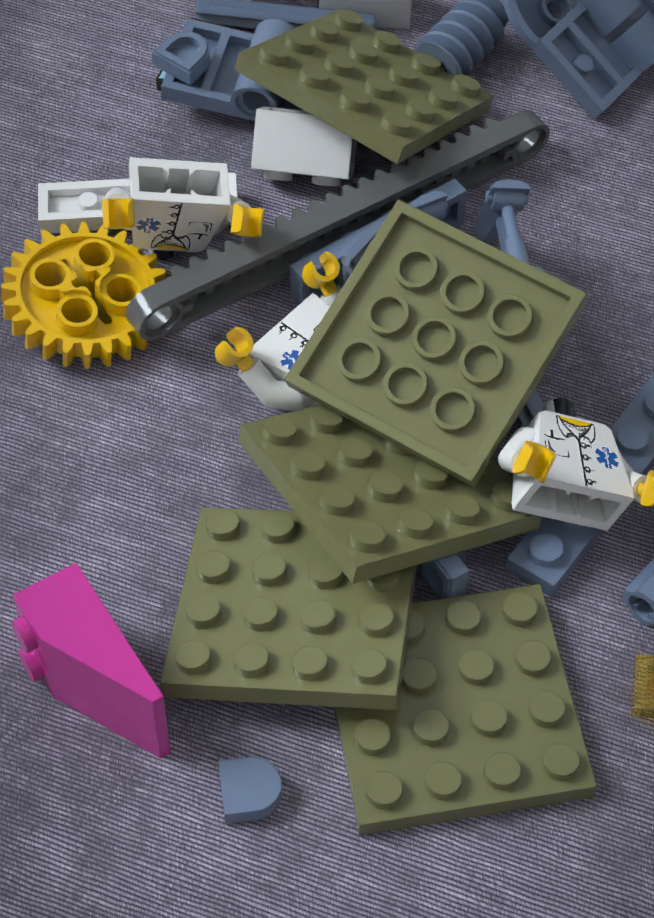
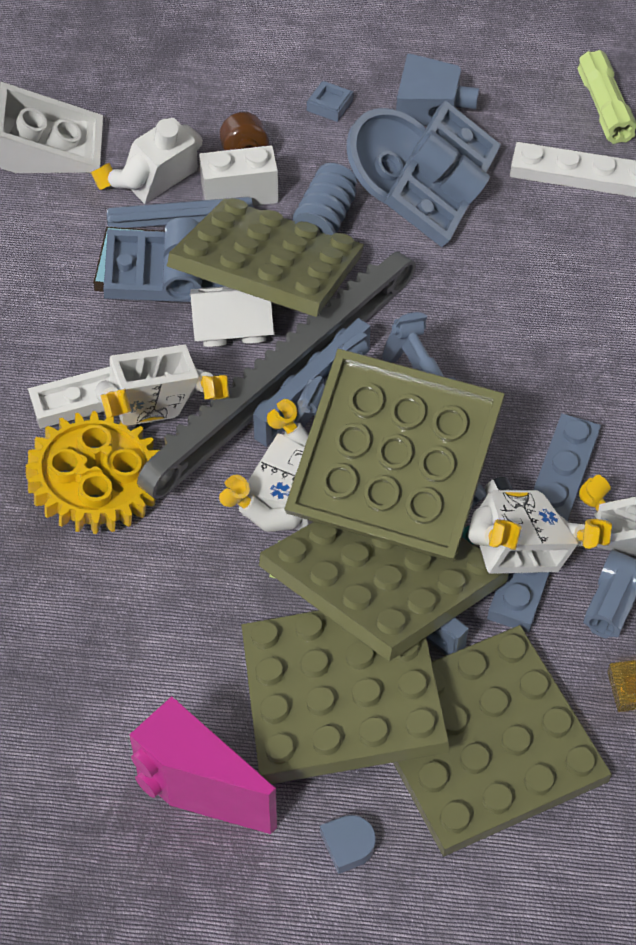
camera: 15 degrees left, 0 degrees up
(183, 56) = (115, 261): sand blue tile -> none

